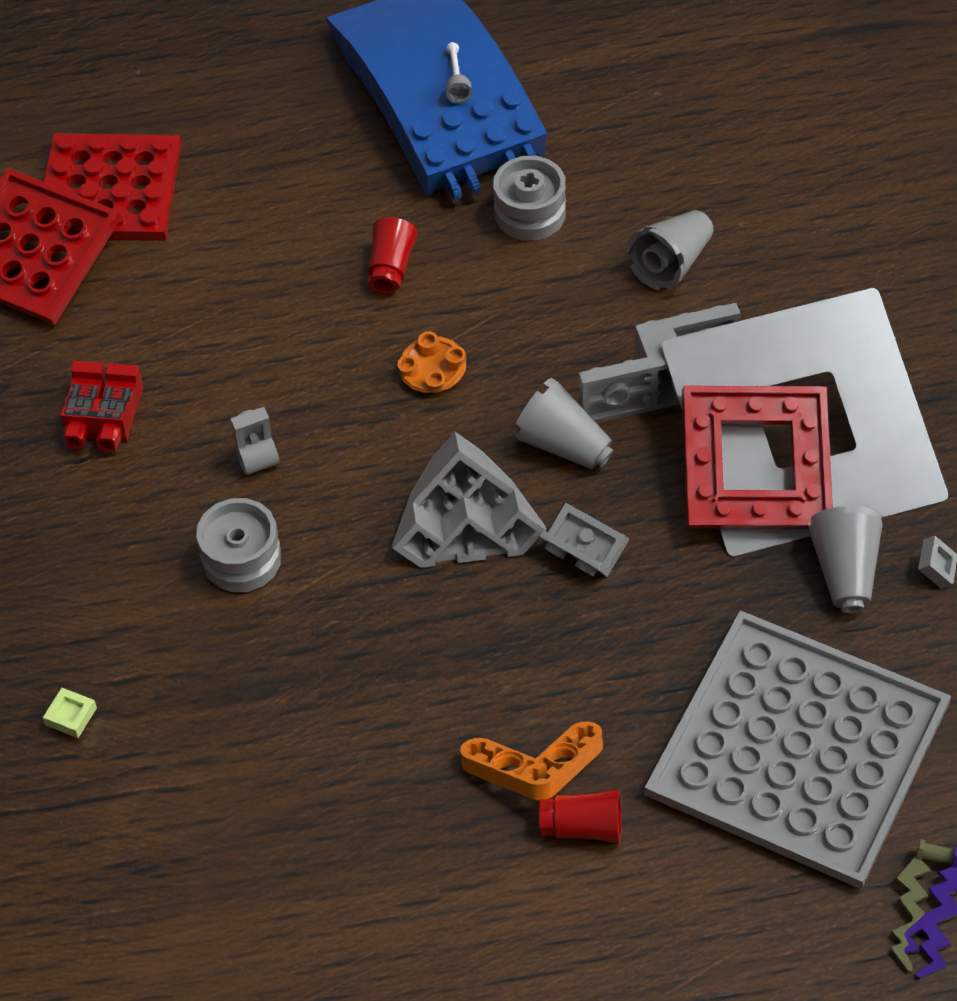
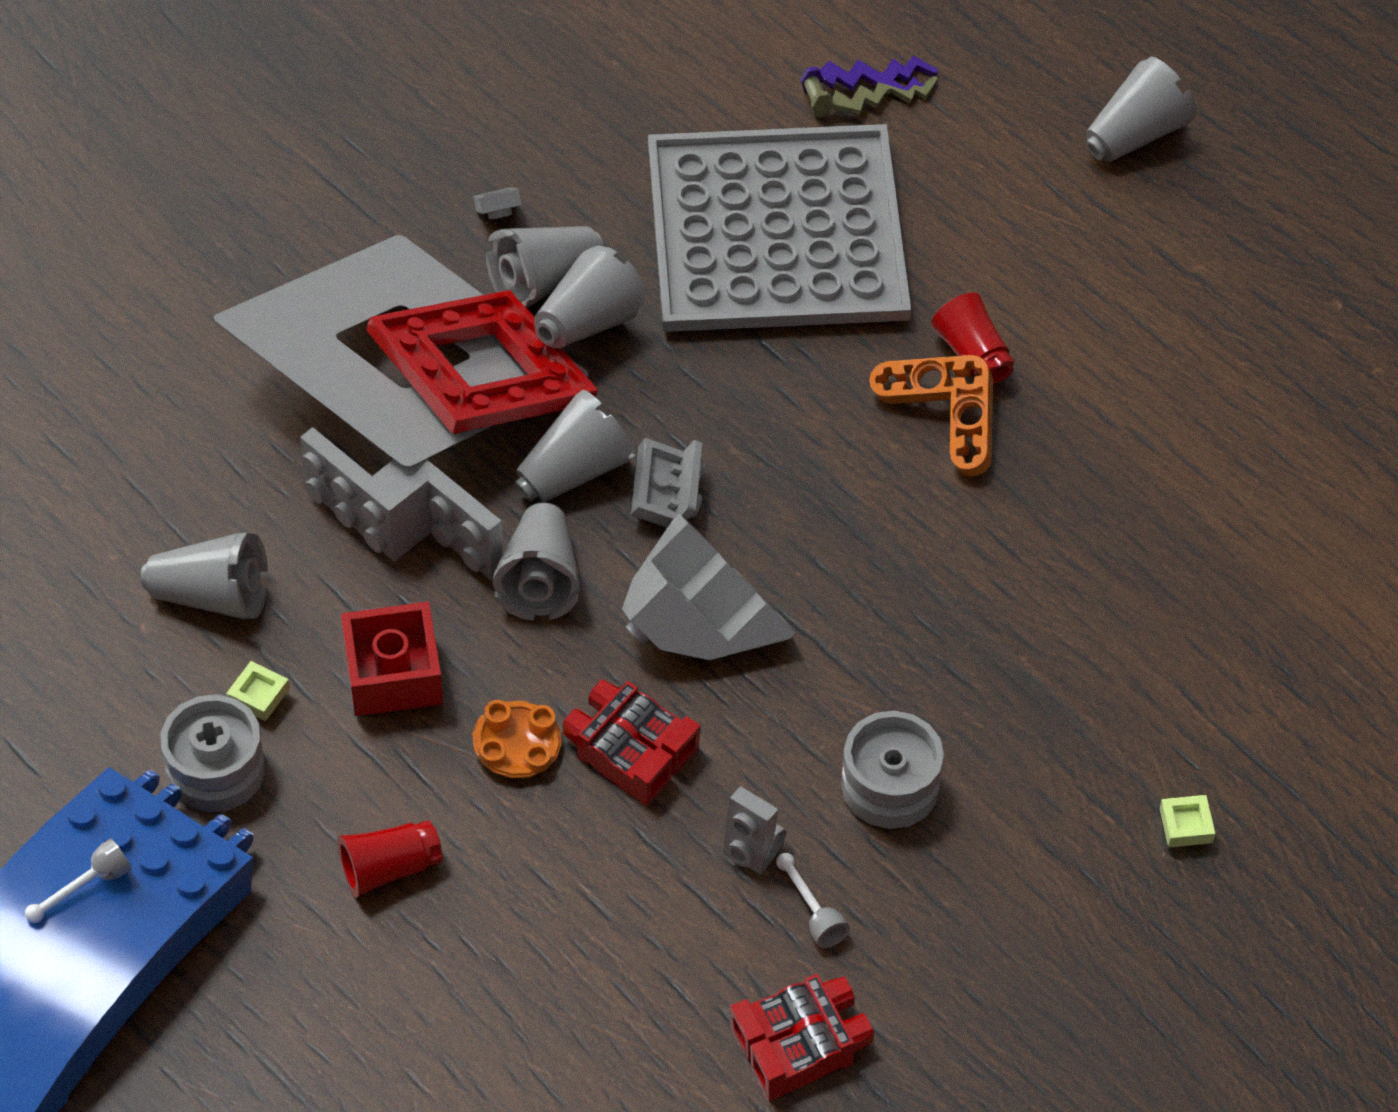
camera: 125 degrees left, 0 degrees up
(165, 461) = (827, 924): none -> light grey hinge
(382, 421) = (632, 739): none -> red hips
(535, 312) = (392, 658): none -> red brick
(568, 245) = (259, 689): none -> yellowish green plate
(647, 497) = (574, 451): none -> light grey cone
(777, 551) = (590, 299): none -> light grey cone

